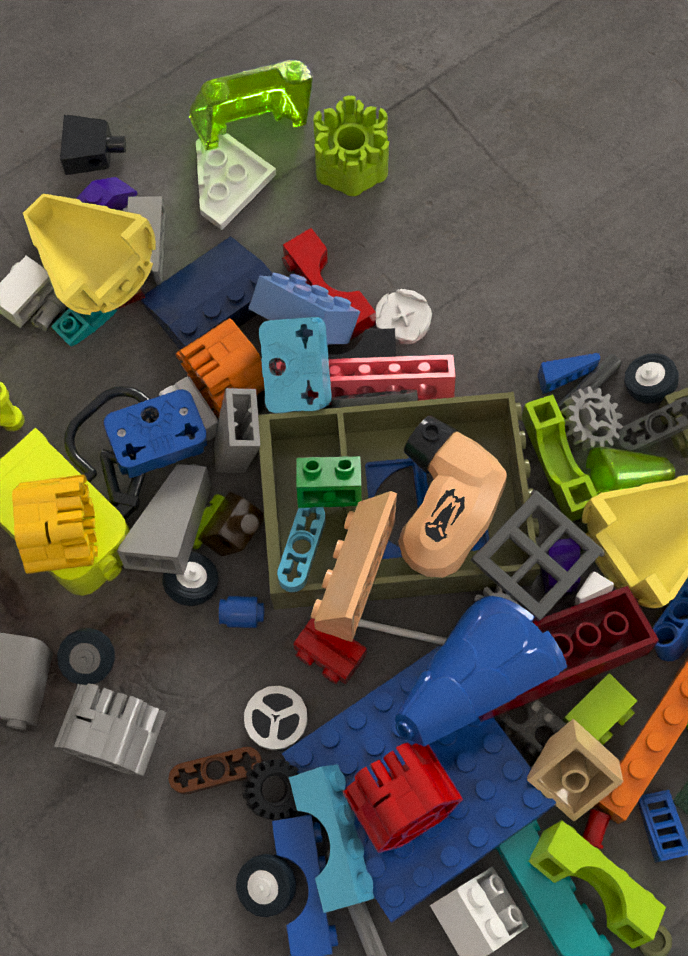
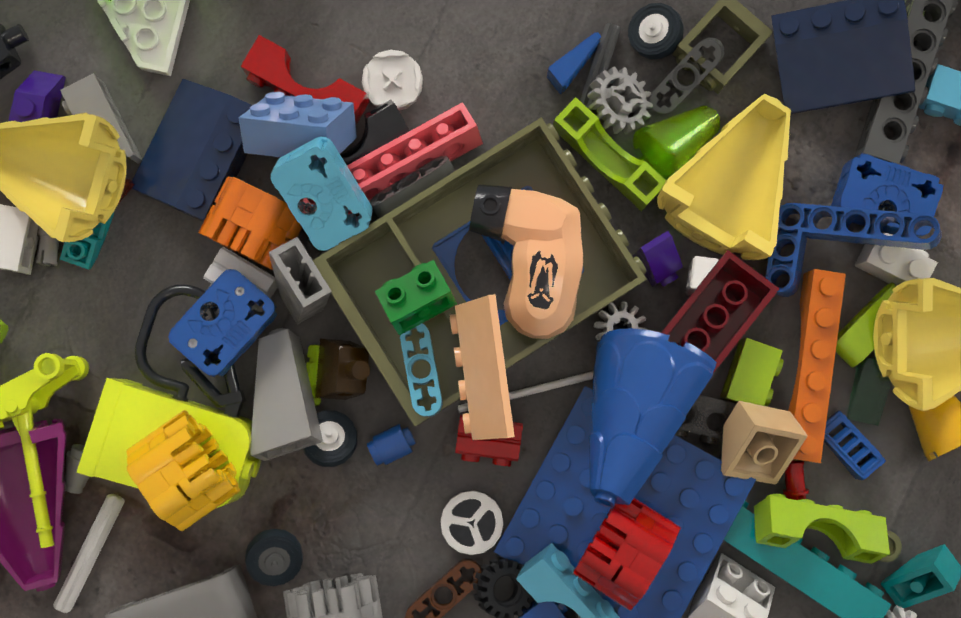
camera: 25 degrees left, 15 degrees up
(537, 554) = (639, 268): dark grey window -> none

